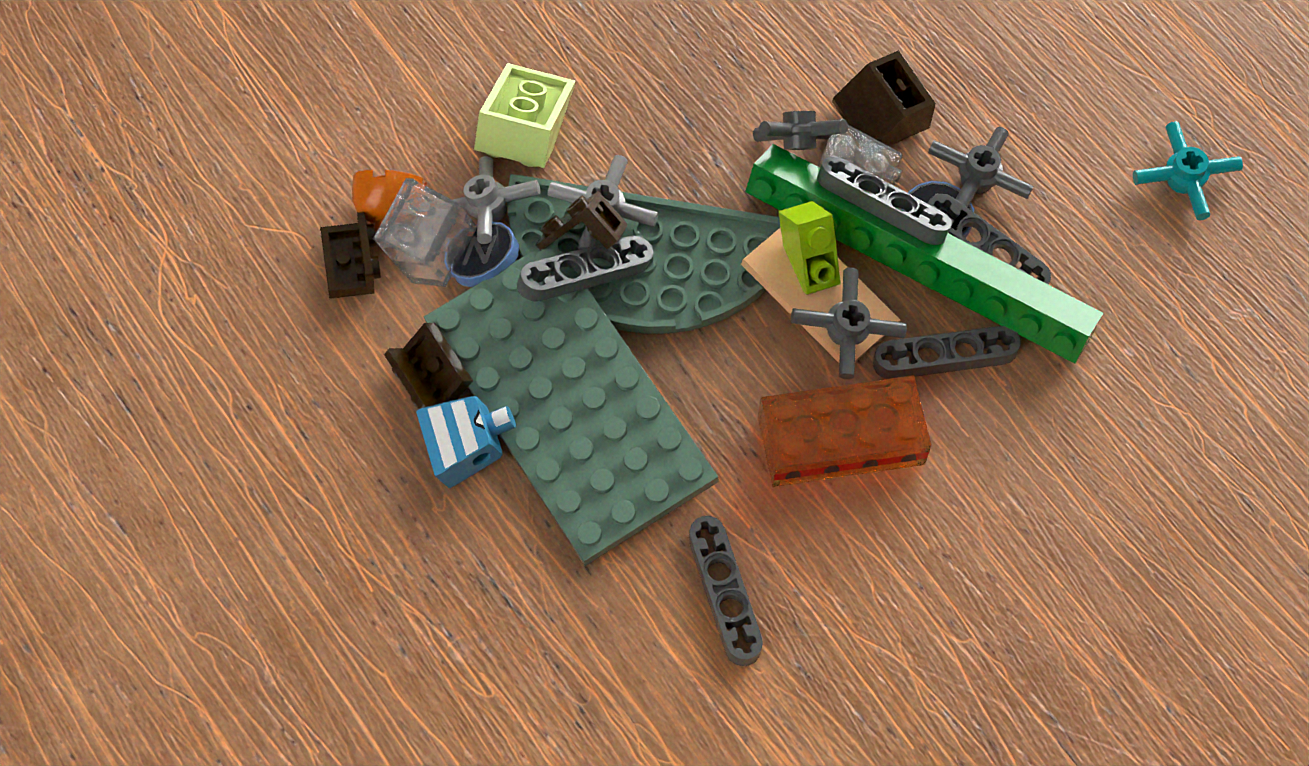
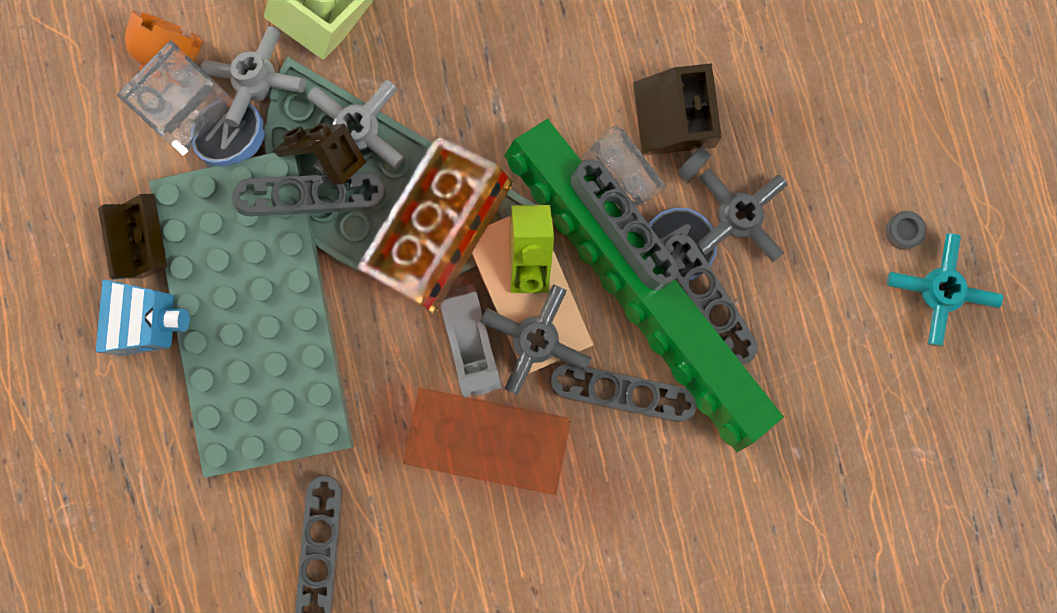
camera: 20 degrees right, 20 degrees up
(348, 258) = (97, 99): dark brown bracket -> none
(716, 252) = (436, 224): none -> clear orange brick
(785, 350) = (469, 342): none -> light grey arch
(799, 130) = (577, 115): dark grey bar -> none
(918, 143) = (694, 164): none -> dark grey tile
(1128, 139) = (905, 230): none -> dark grey tile

